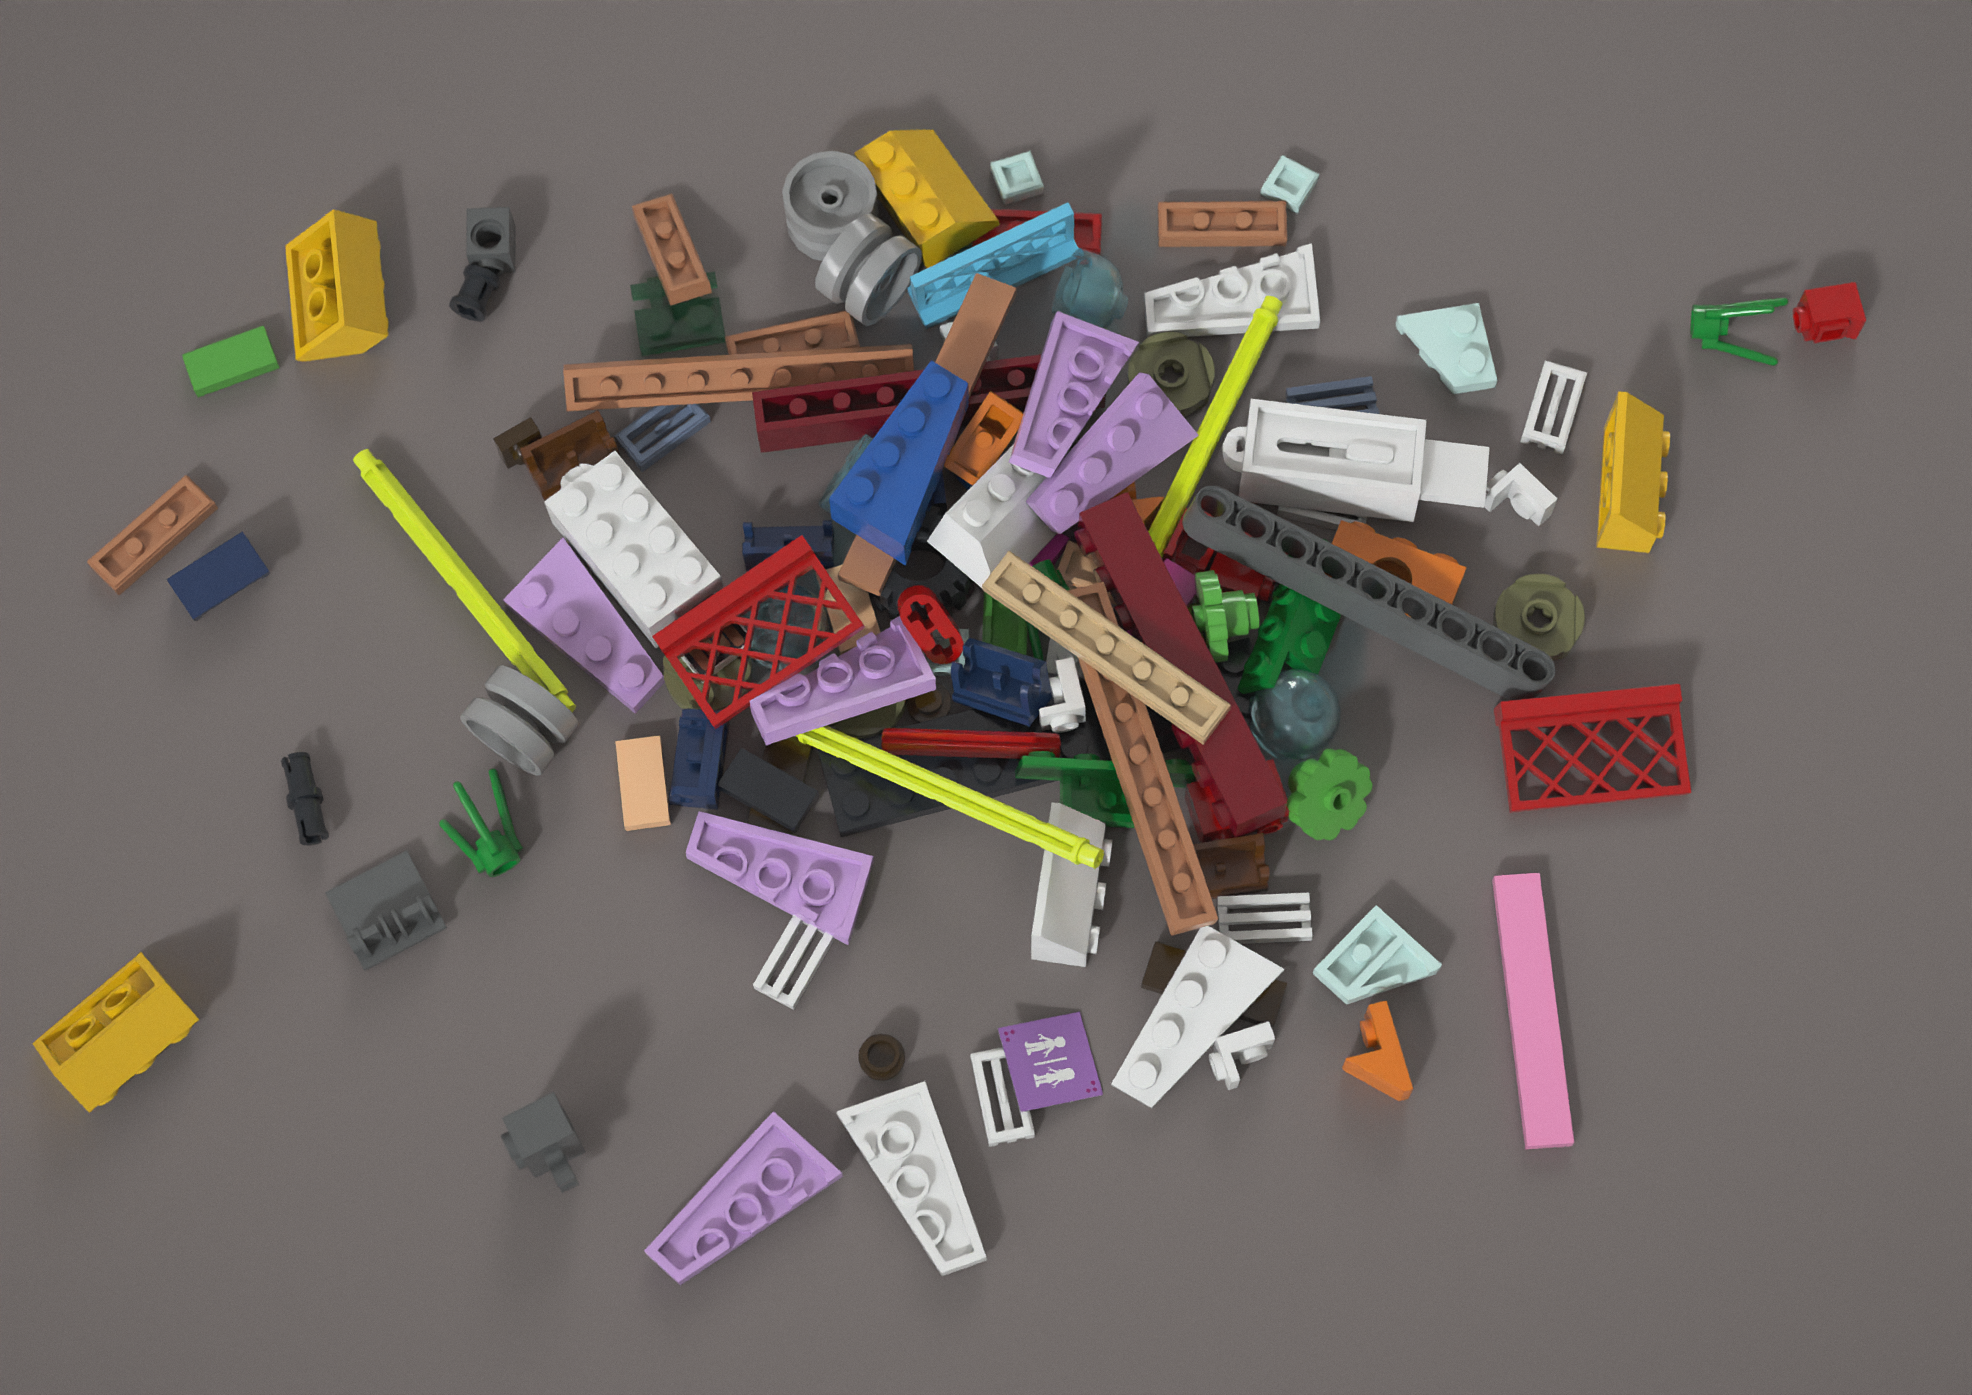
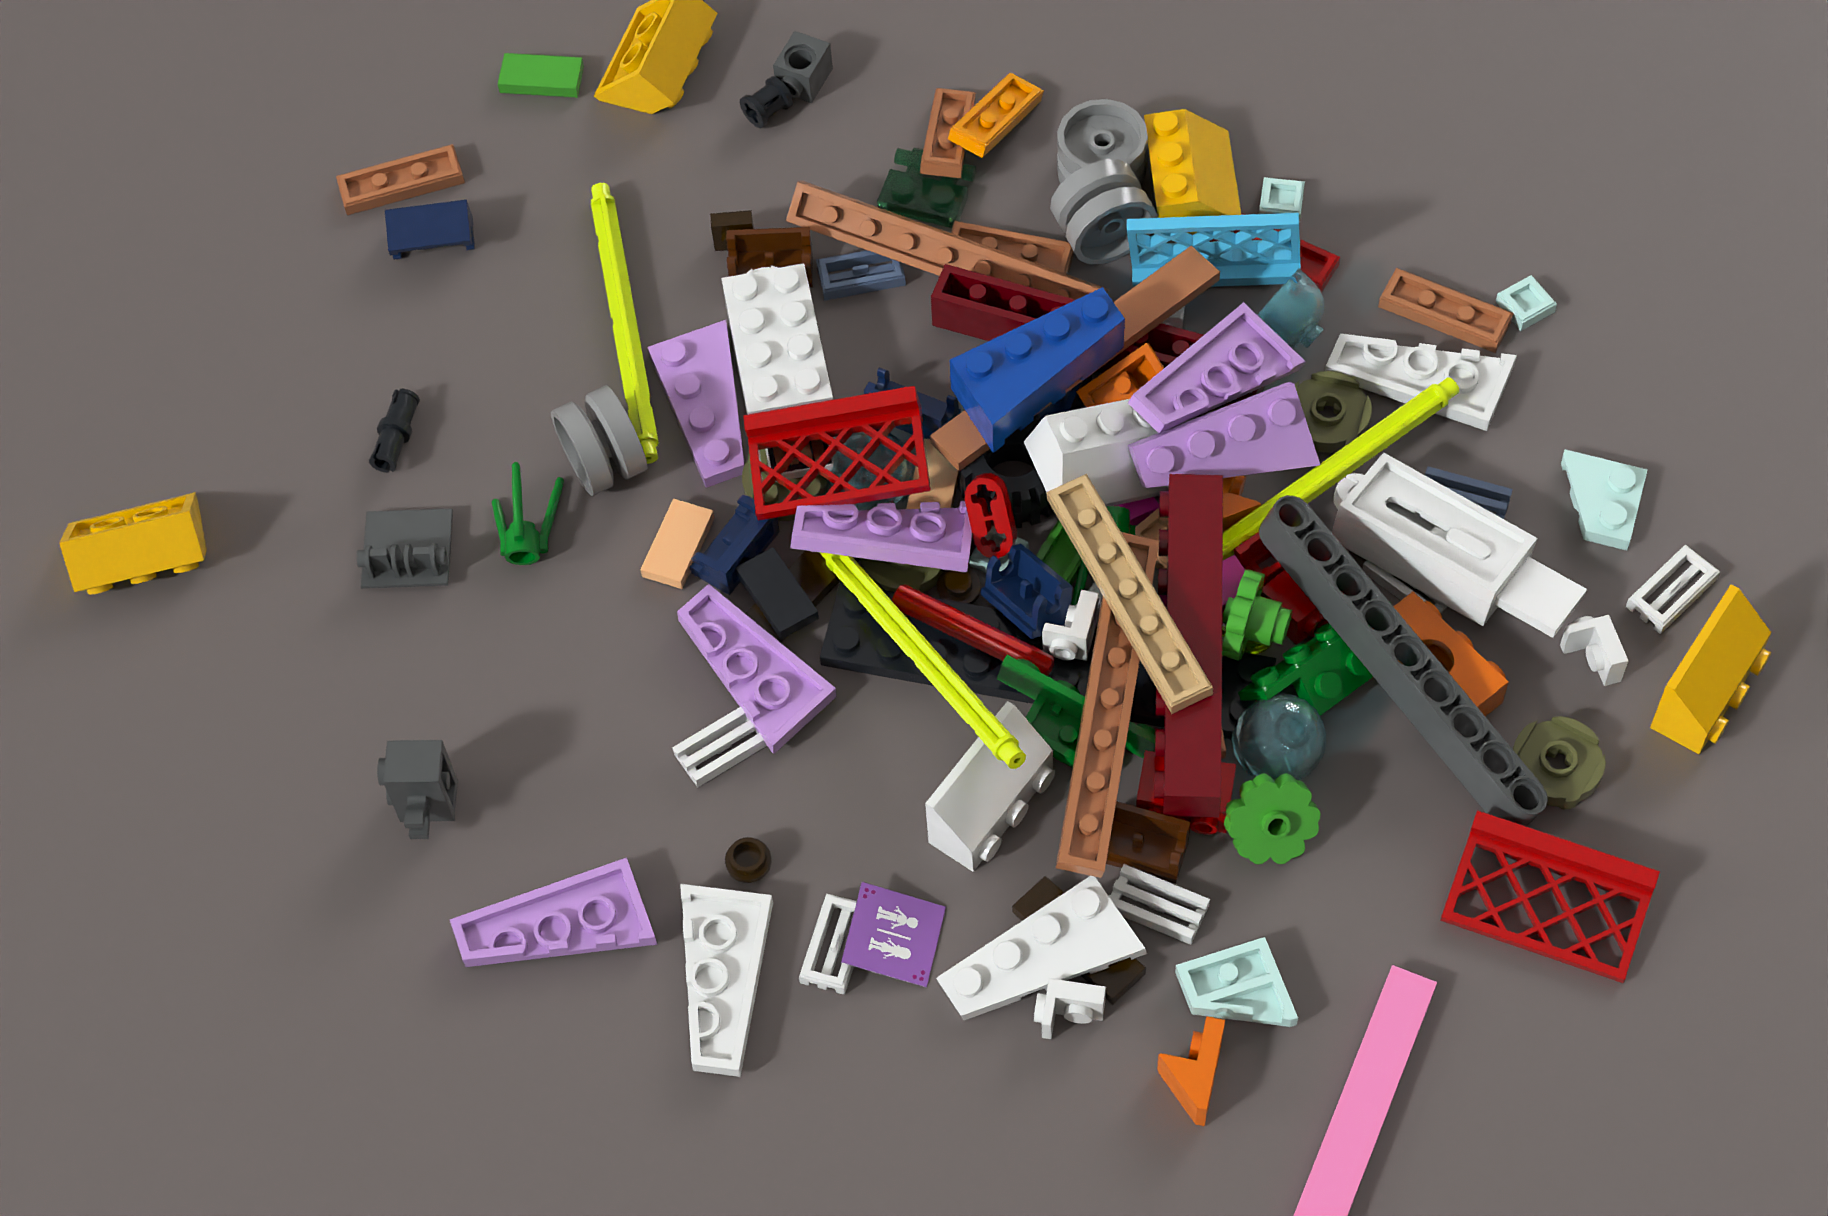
camera: 30 degrees right, 10 degrees down
(708, 211) = (995, 115): none -> light orange tile

